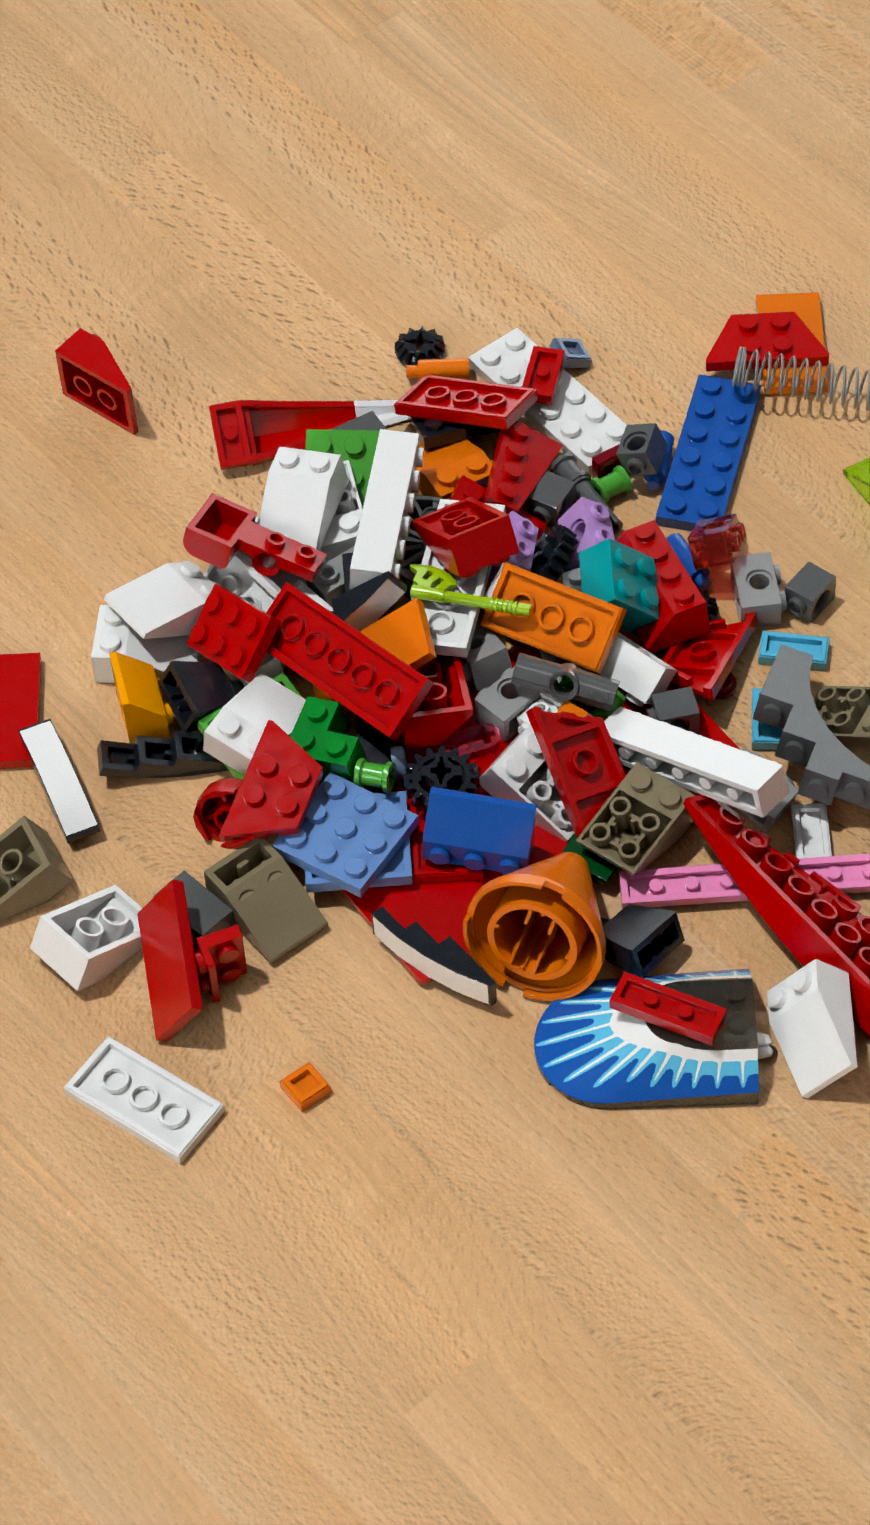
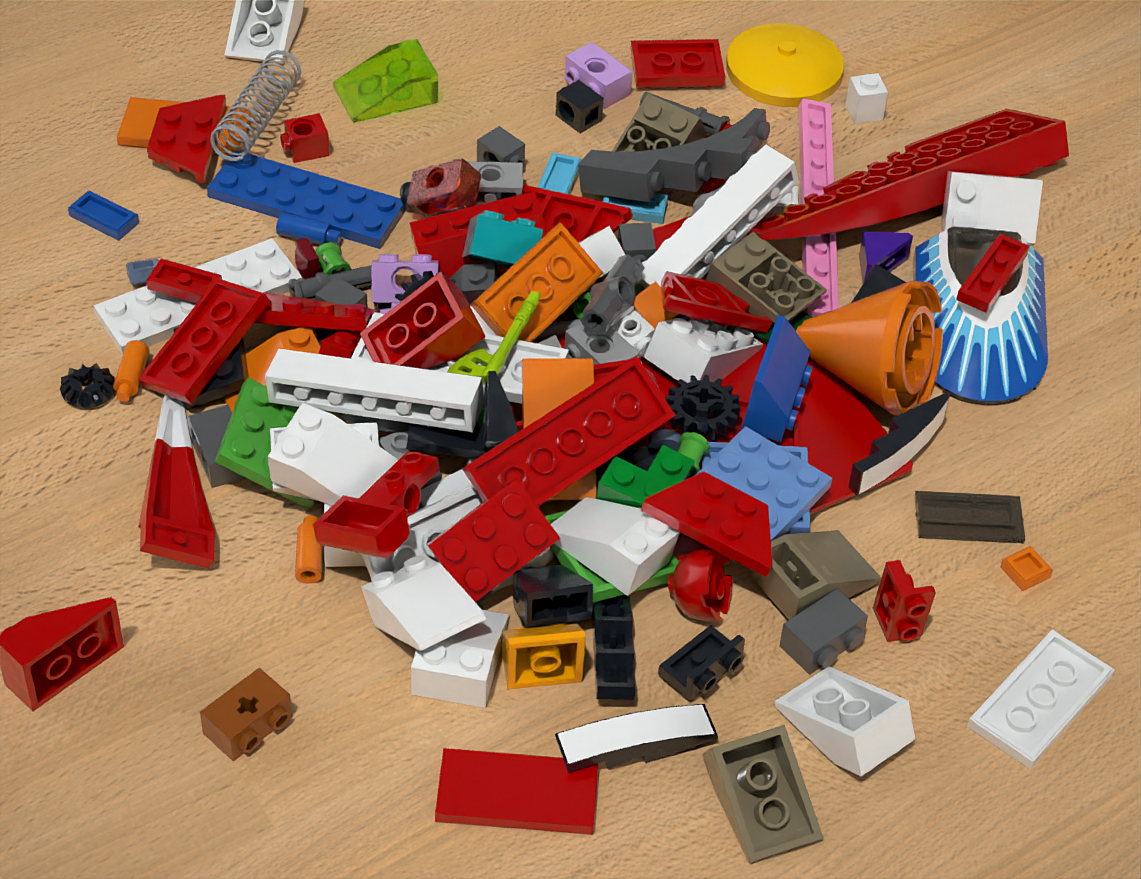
camera: 90 degrees left, 5 degrees down
(60, 518) = (246, 714): none -> dark orange brick
(148, 823) = (702, 662): none -> black bracket
(170, 961) = (901, 640): red tile -> none
(369, 1037) = (969, 517): none -> clear smoke piece
(642, 449) = (306, 212): dark grey brick -> none
(647, 311) = (103, 215): none -> blue tile
(726, 936) = (884, 249): none -> dark purple slope
(790, 434) = (305, 138): none -> red brick

